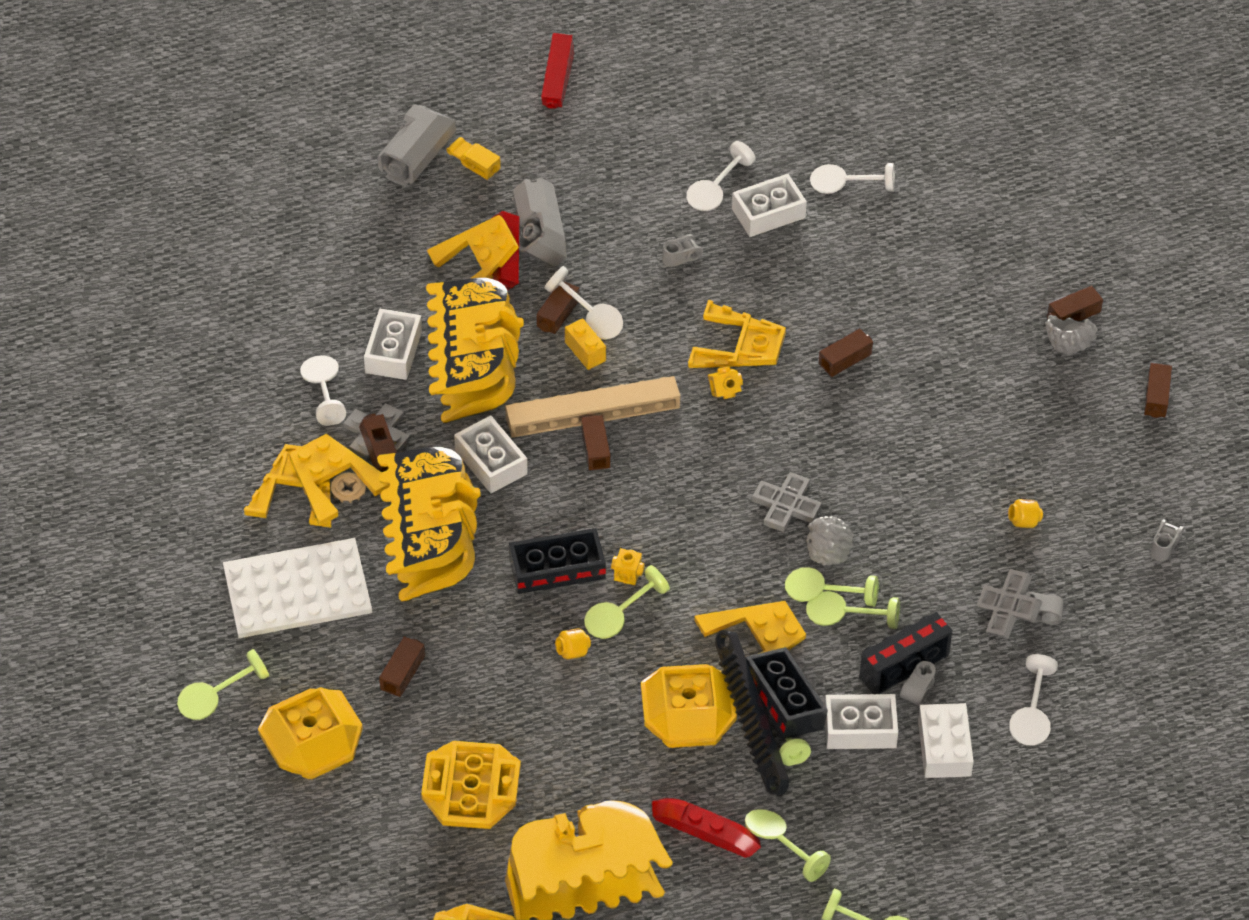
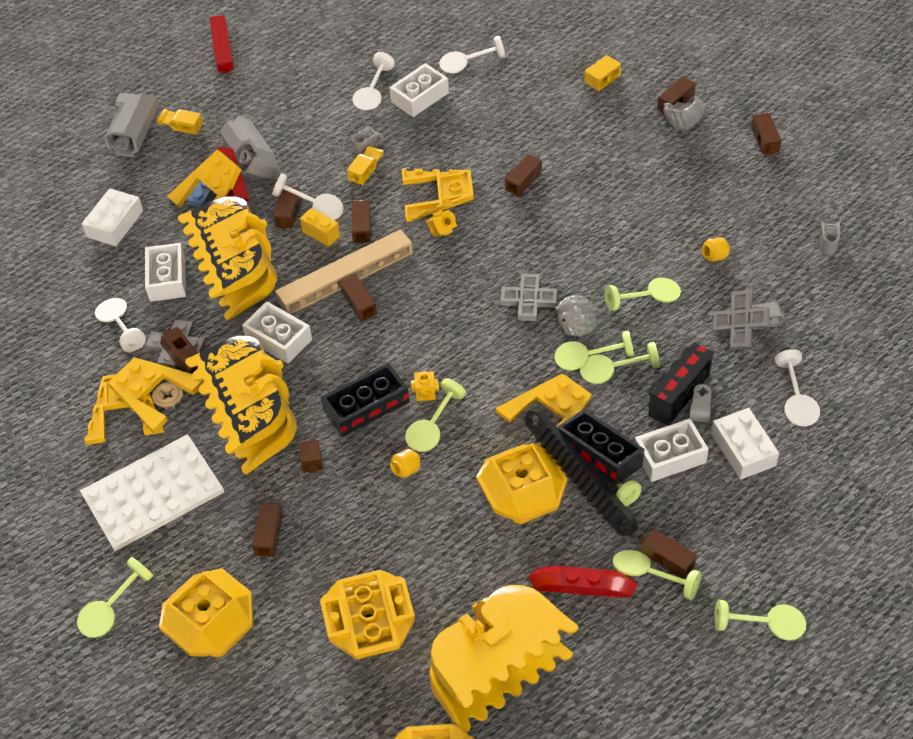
camera: 15 degrees left, 0 degrees up
(356, 257) = (112, 217): none -> white brick
(463, 261) = (199, 195): none -> medium blue plate
(475, 604) = (310, 456): none -> reddish brown brick
(635, 351) = (361, 221): none -> reddish brown brick
(667, 281) = (364, 165): none -> yellow piece
(807, 826) = (668, 553): none -> reddish brown brick
(940, 540) = (660, 289): none -> yellowish green piece
(1000, 249) = (602, 73): none -> yellow brick

